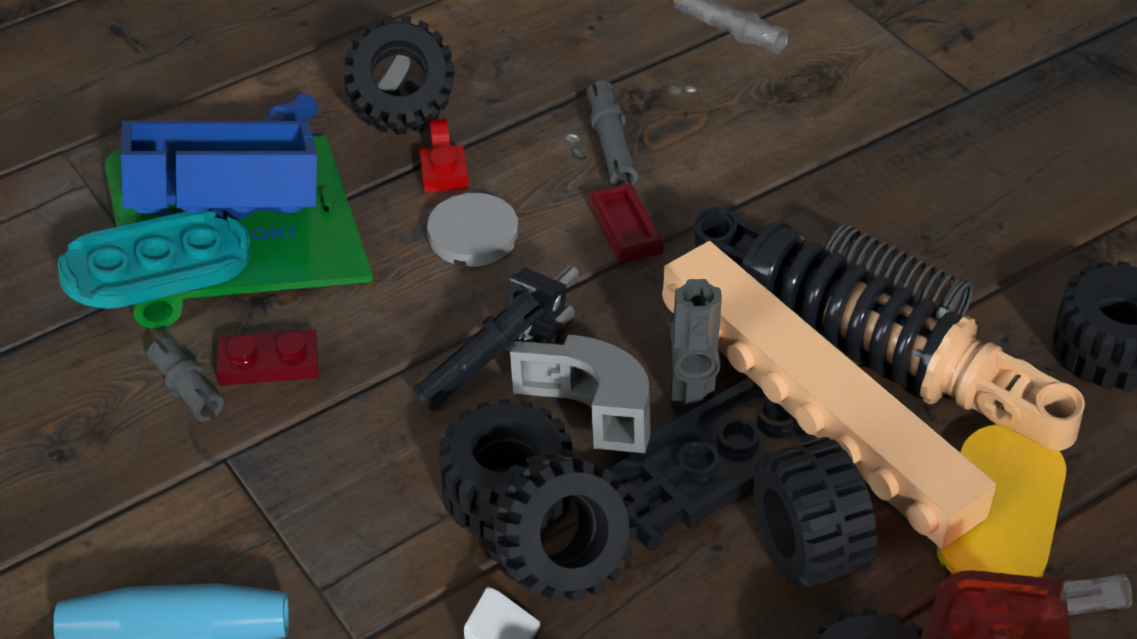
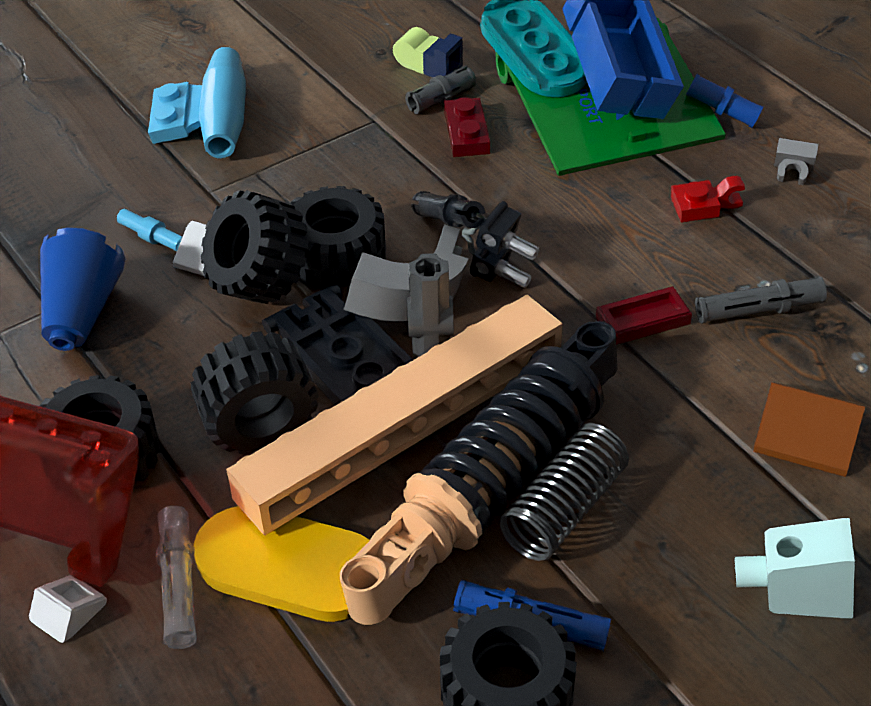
camera: 90 degrees right, 0 degrees up
(103, 385) = (429, 53): none -> leg
(405, 40) = (776, 141): black tyre -> none
(473, 229) = (619, 221): light grey tile -> none
(777, 121) = (809, 428): none -> dark orange slope
(967, 149) = (804, 569): none -> light aqua torso
(1043, 284) = (581, 626): none -> blue pin

